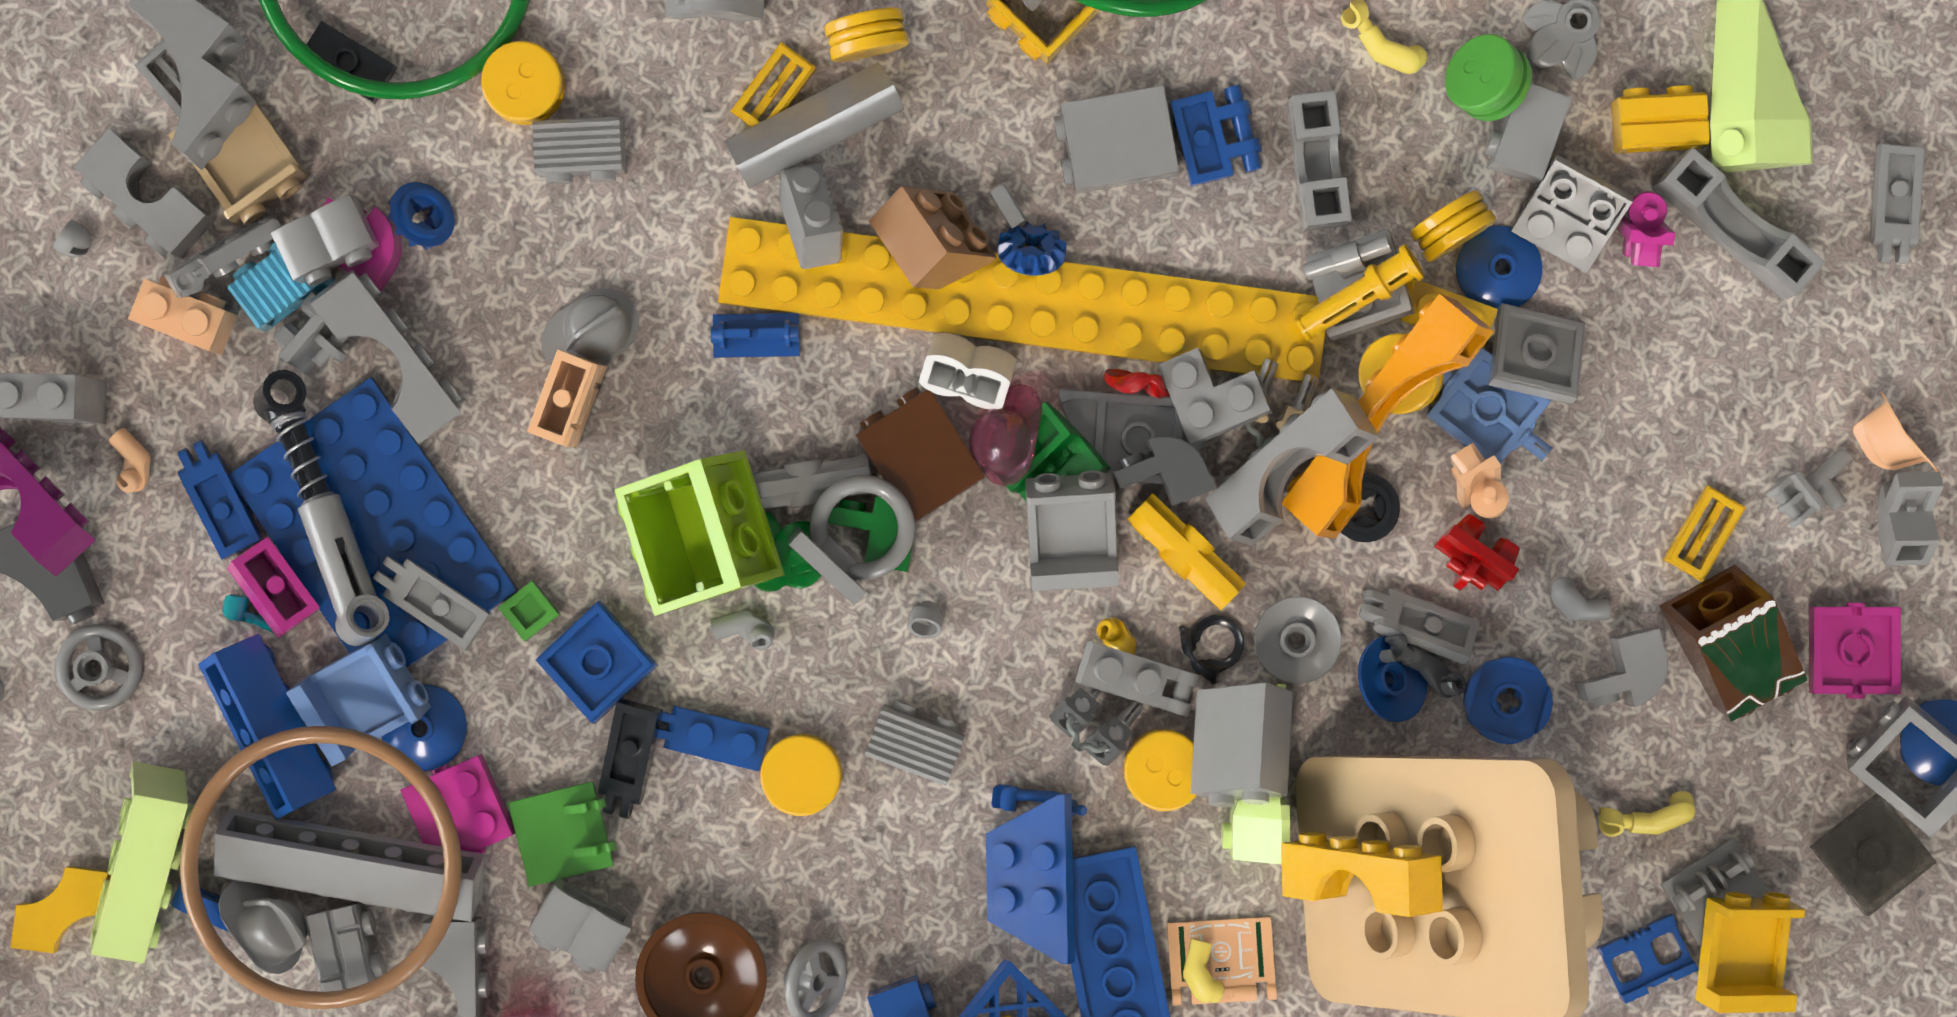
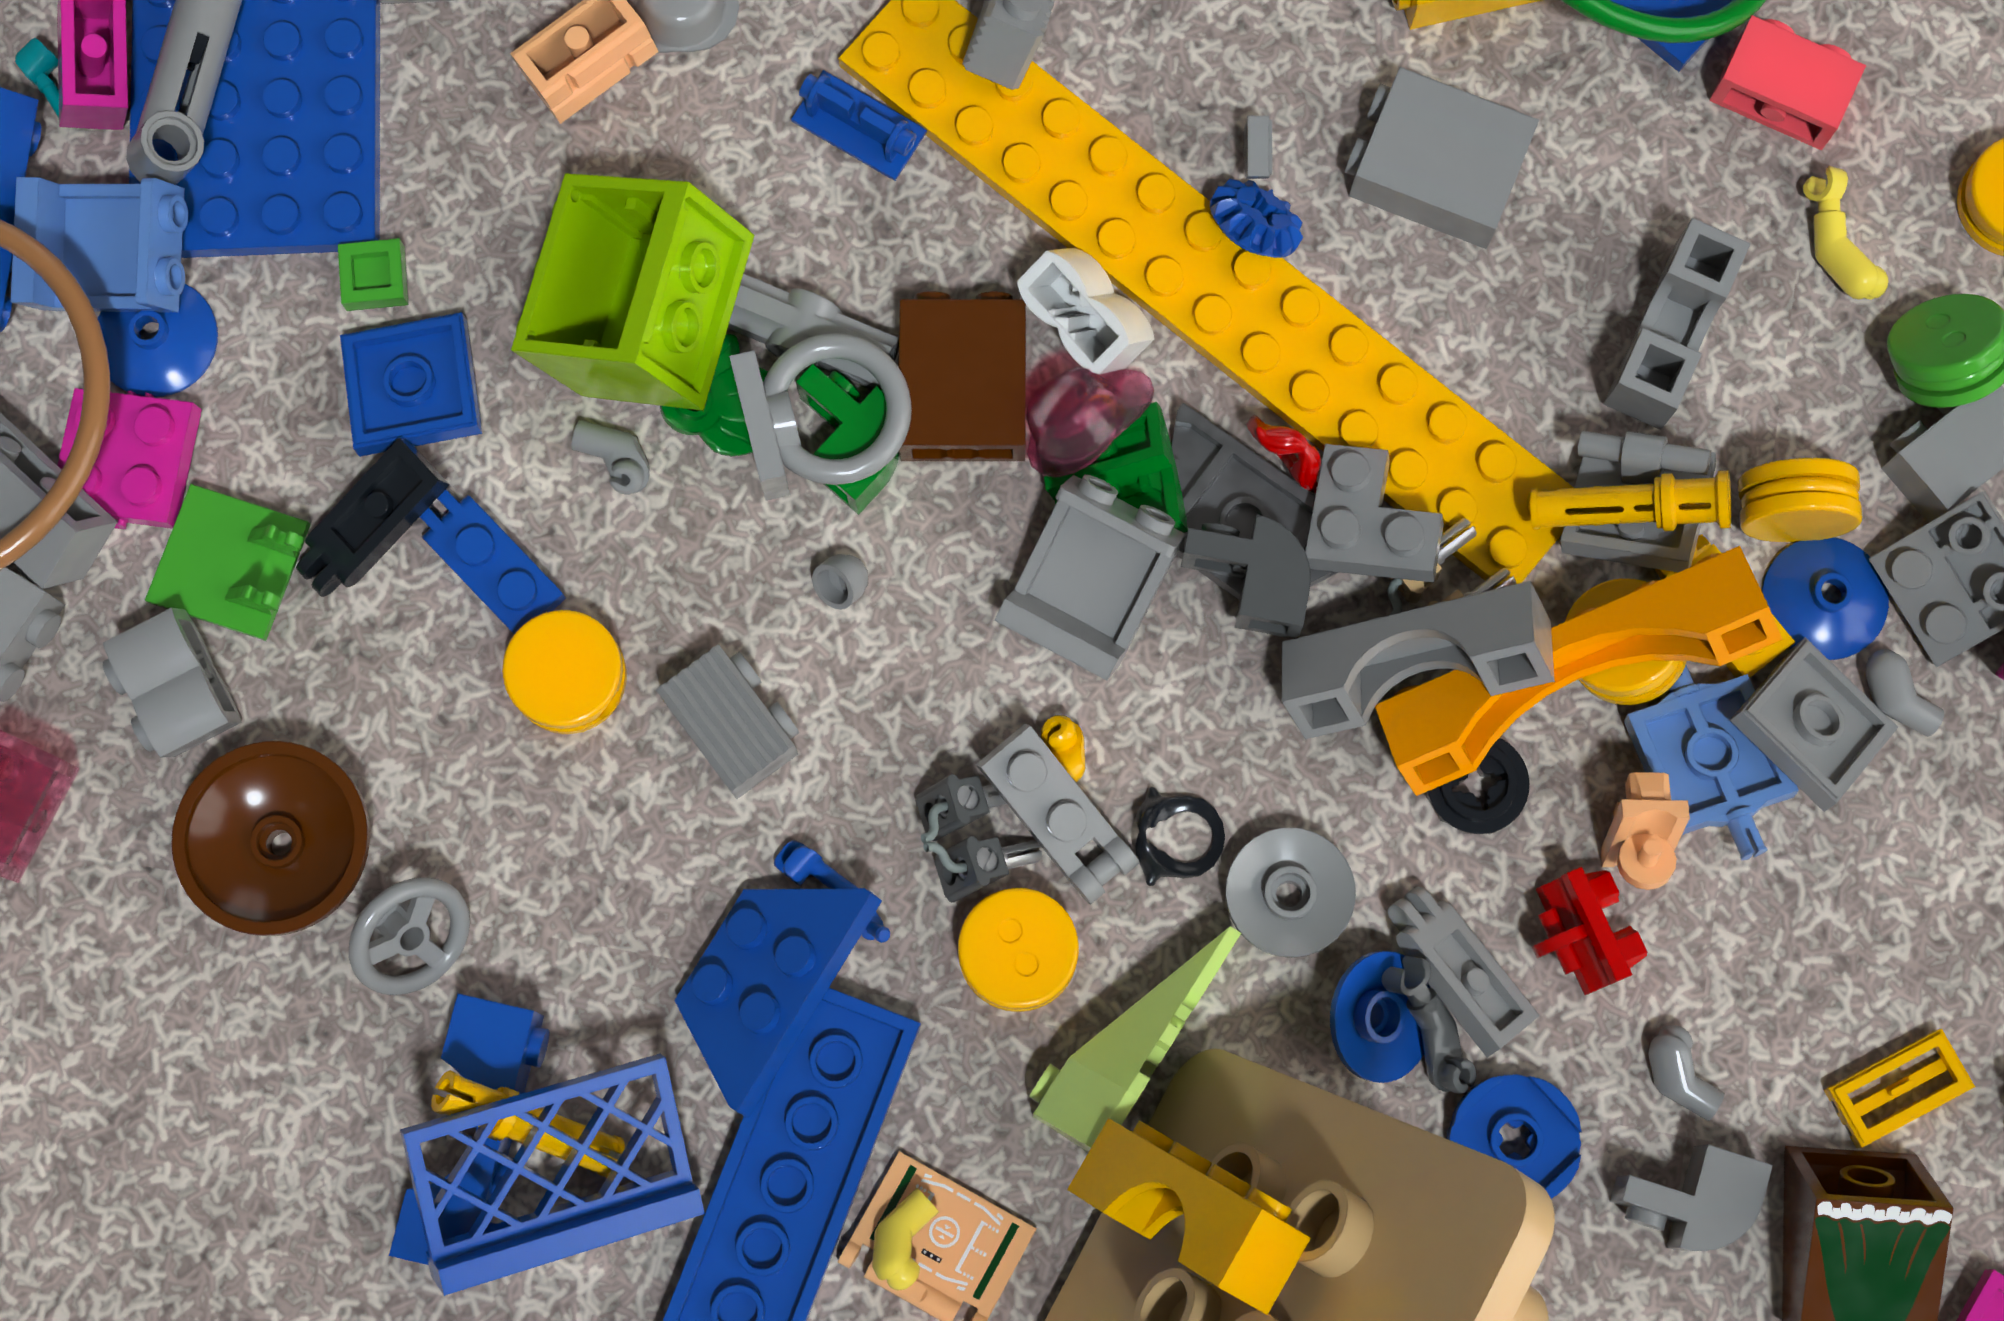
camera: 30 degrees right, 10 degrees down
(433, 602) = (265, 186): light grey hinge -> none
(931, 236) = (1143, 124): medium nougat slope -> none
(1186, 551) = (1217, 696): yellow piece -> none
(1203, 139) = (1546, 220): blue plate -> none
(1242, 744) = (1138, 968): light grey brick -> none
(1572, 303) = (1895, 693): none -> light grey arm

